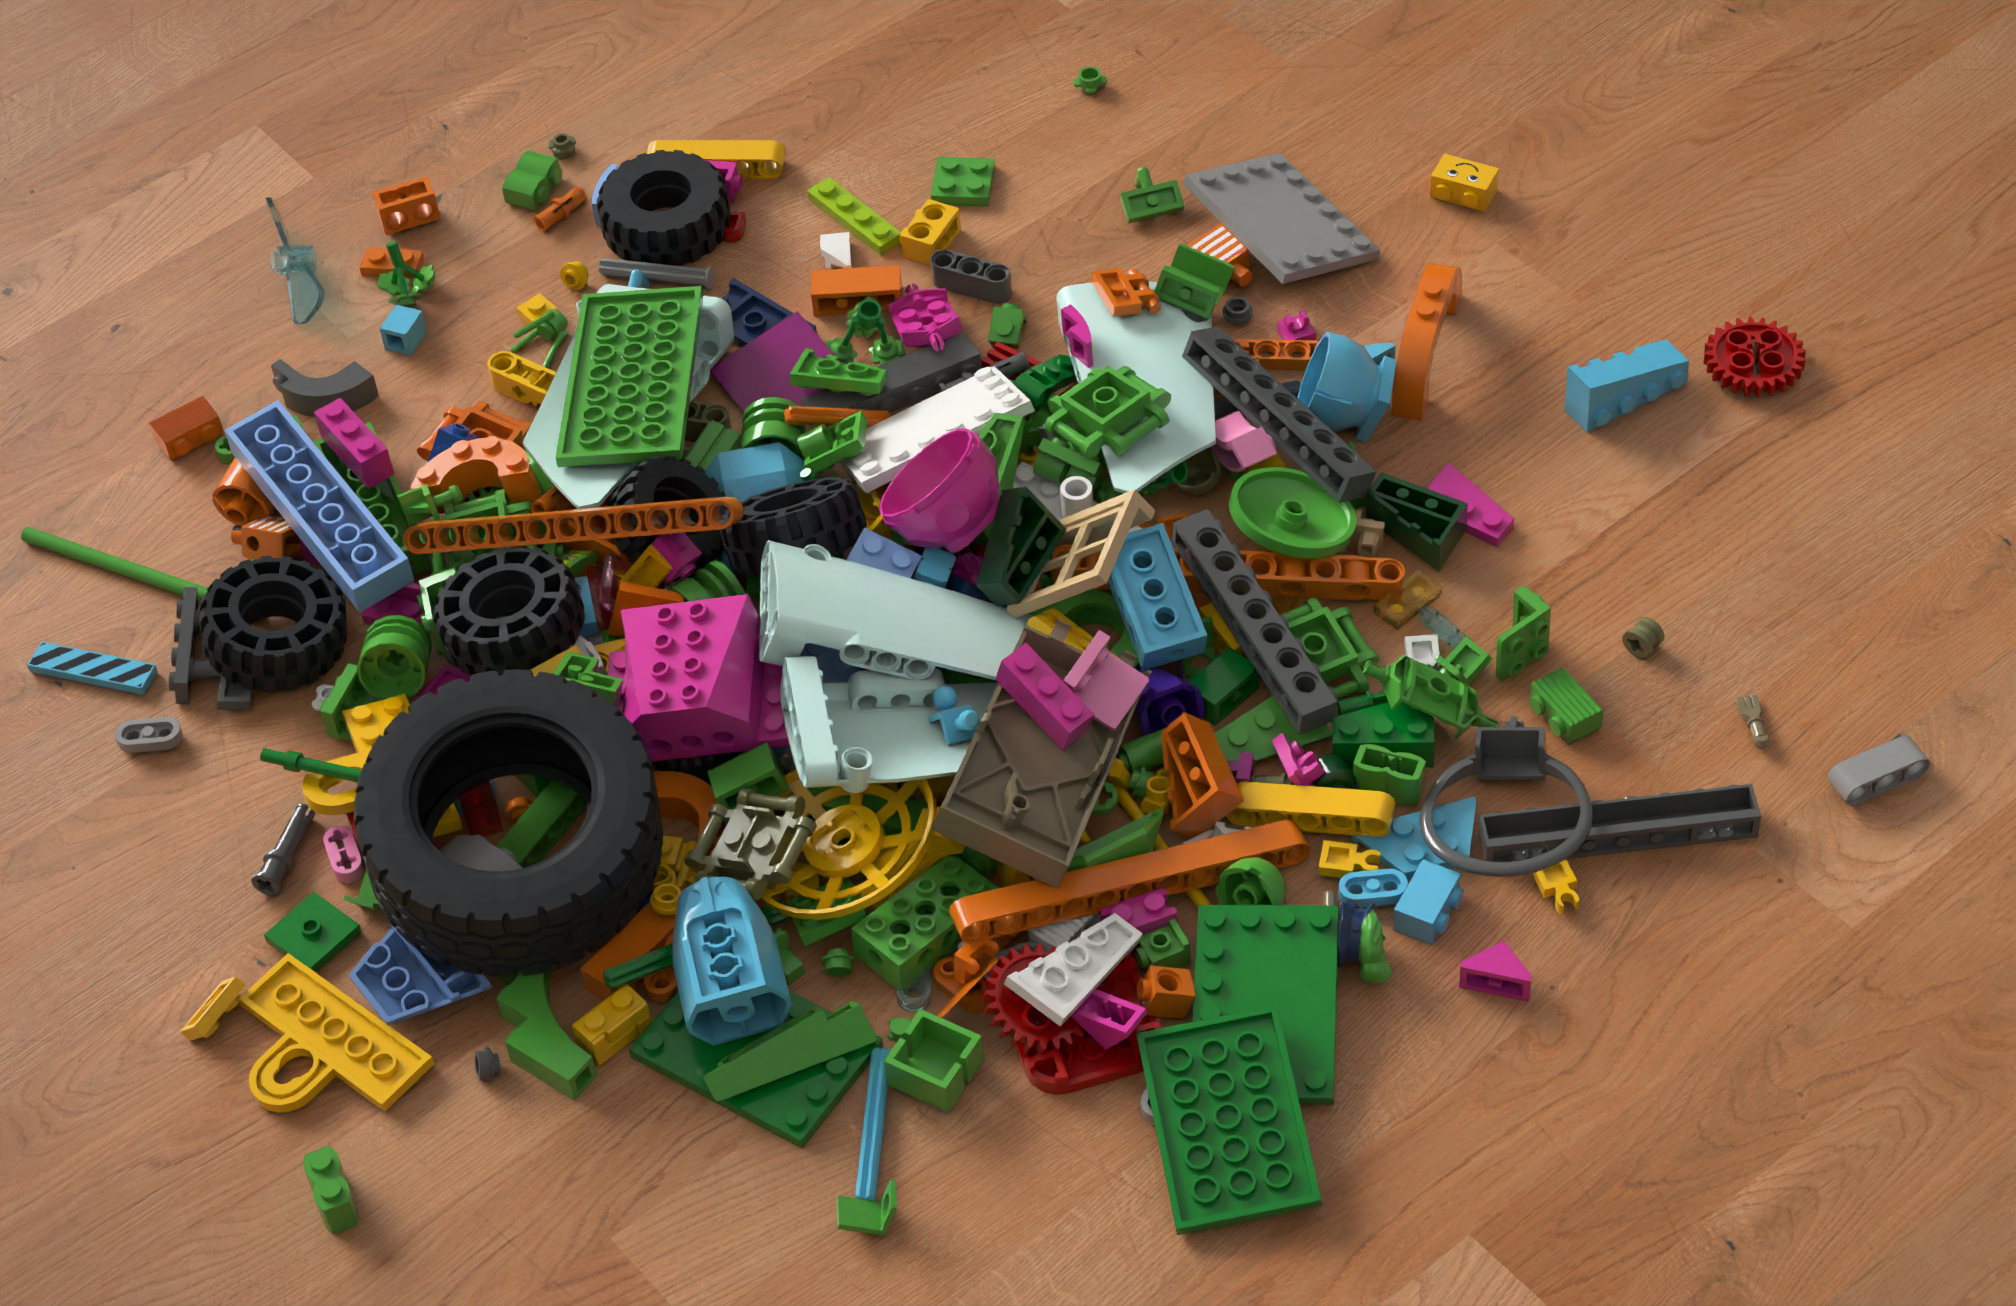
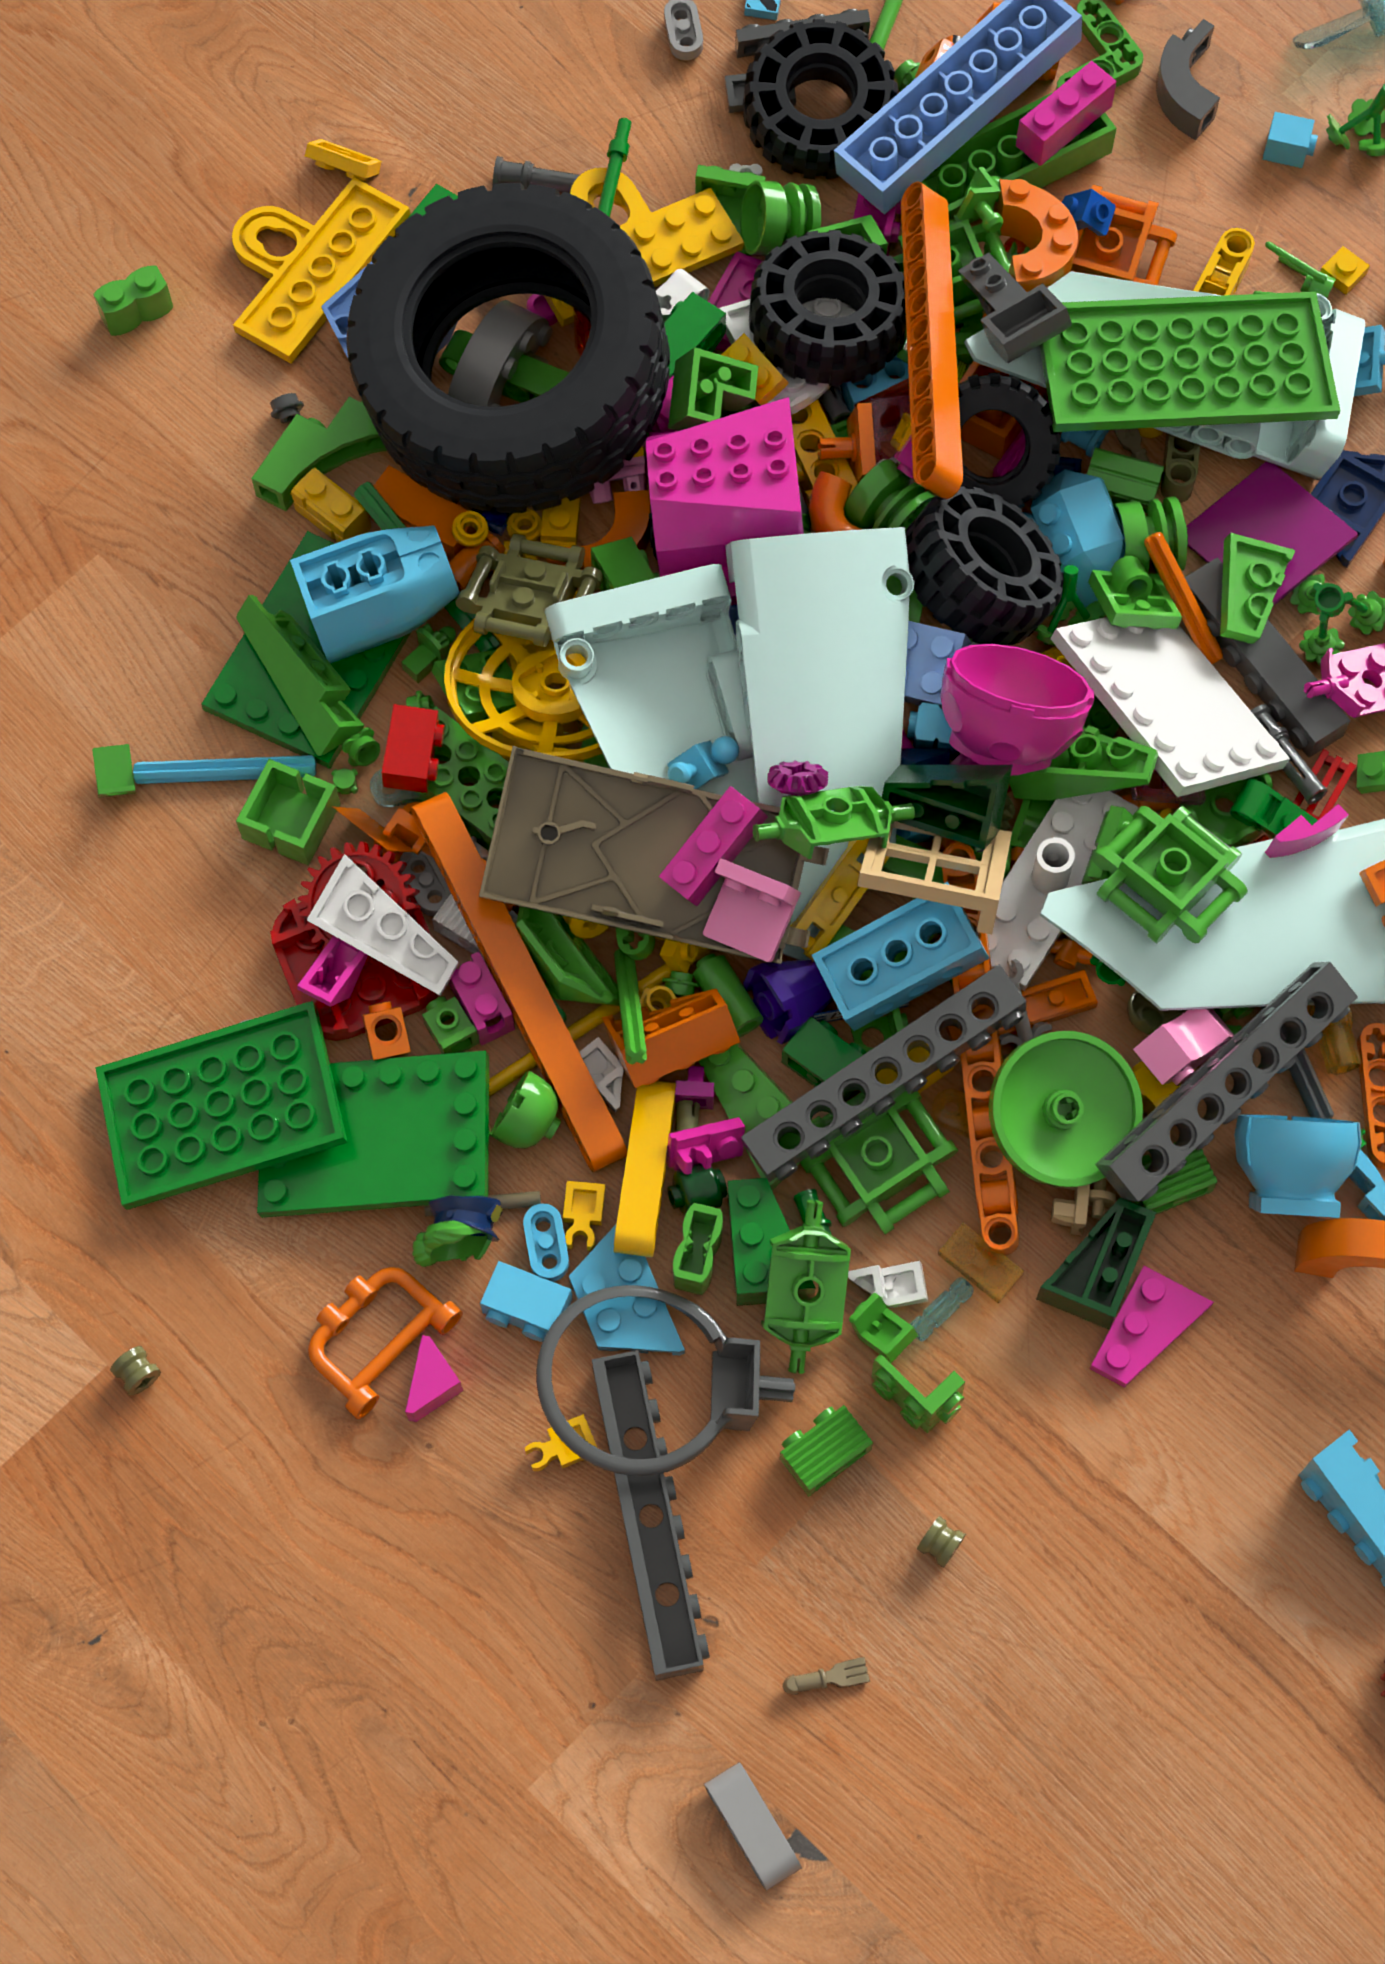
camera: 80 degrees right, 20 degrees up
(576, 457) = (1014, 317): none -> dark grey plate
(873, 1008) = (362, 748): none -> bright green plate
(901, 933) = (411, 749): none -> red piece
(990, 633) = (797, 778): none -> magenta gear
(1036, 607) = (810, 822): none -> bright green plate
(1171, 792) = (630, 1009): none -> bright green axle
(1436, 1047) = (361, 1293): none -> orange bar
(1480, 1199) = (135, 1370): none -> olive wheel

